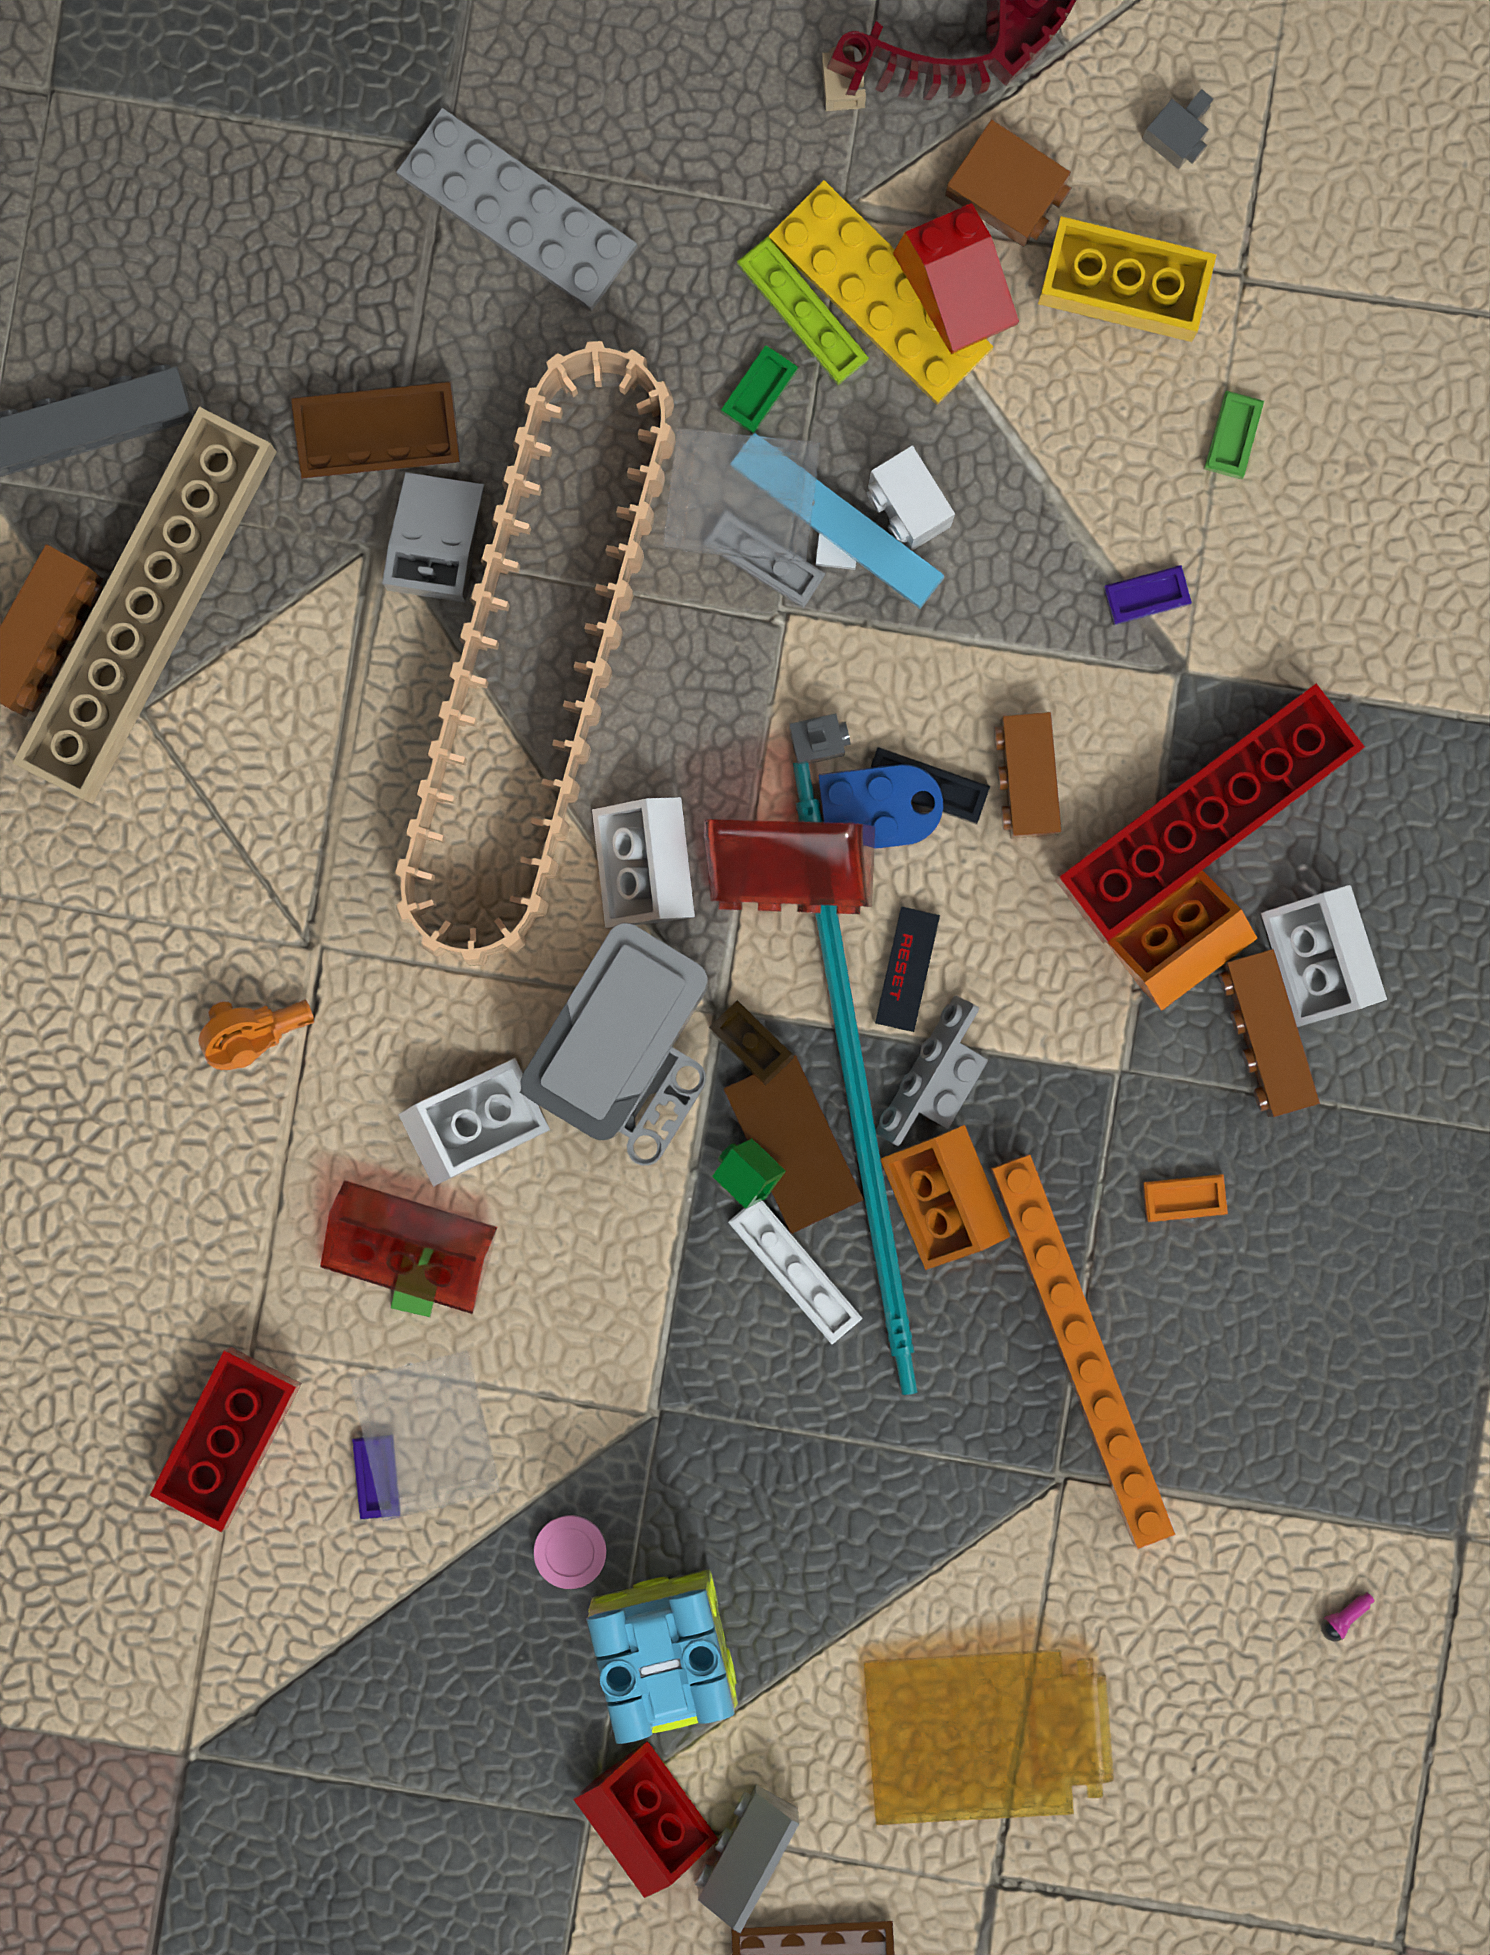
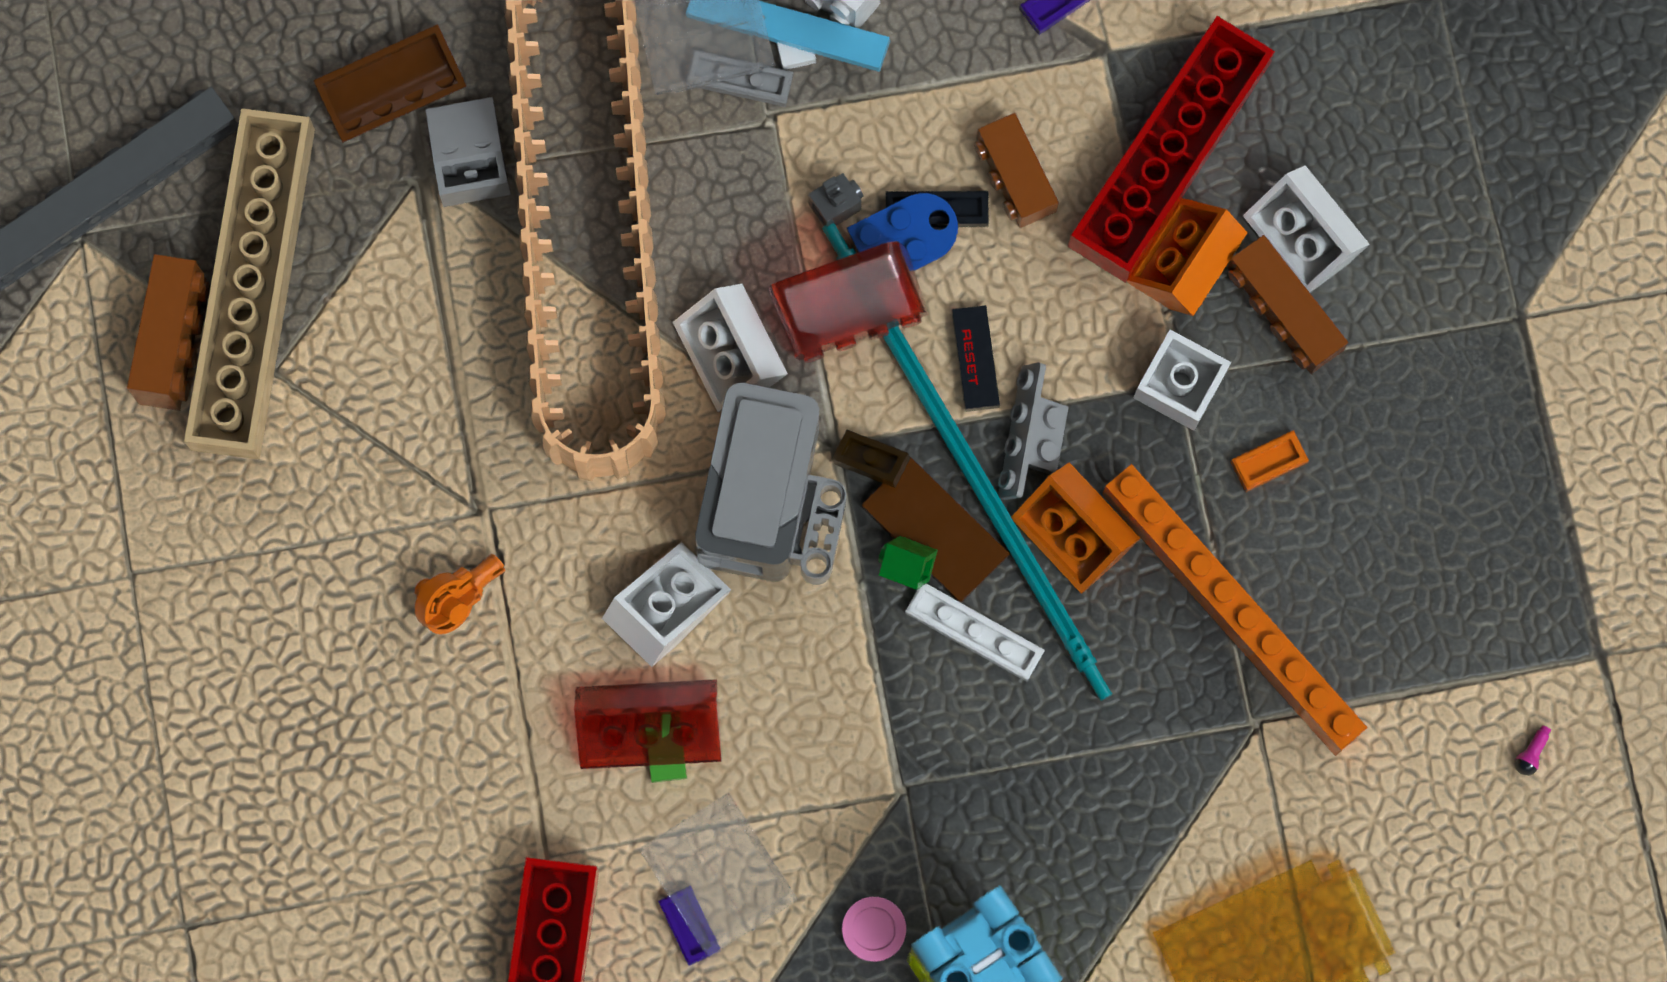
camera: 25 degrees left, 10 degrees down
(1122, 1078) = (1182, 380): none -> white brick

